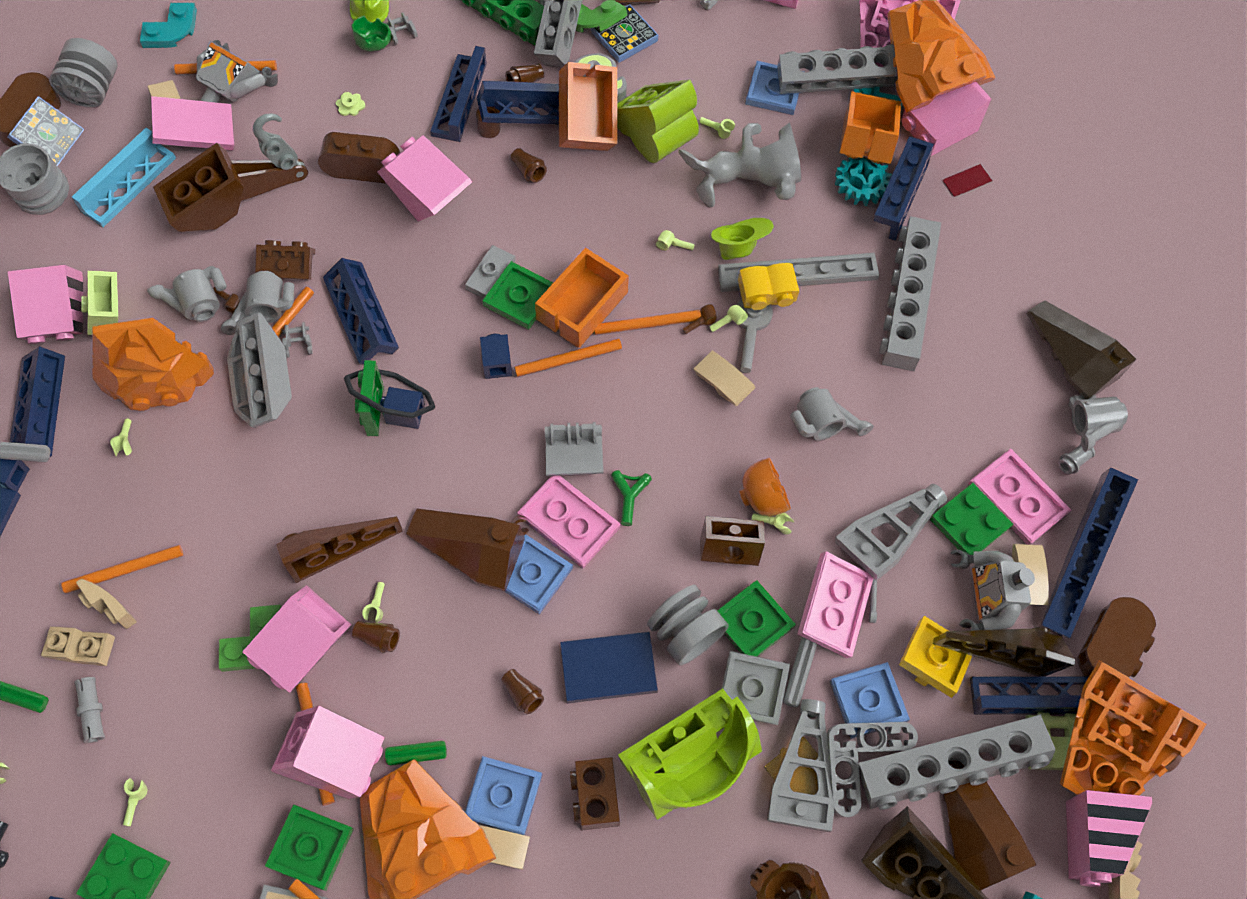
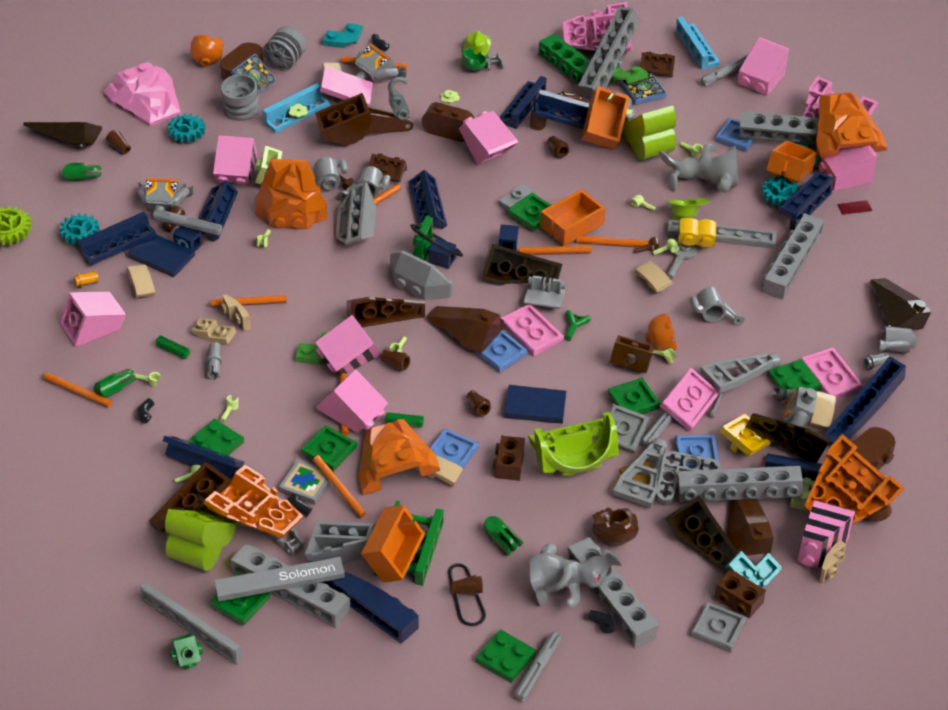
camera: 15 degrees right, 20 degrees down
(128, 182) = (298, 110): none -> yellowish green plant
(225, 31) = (379, 43): none -> black arm
(306, 338) = (389, 209): light grey piece -> none
(377, 469) = (419, 277): none -> light grey wedge
(517, 407) = (516, 267): none -> dark brown wedge
(683, 619) = (590, 386): light grey wheel -> none

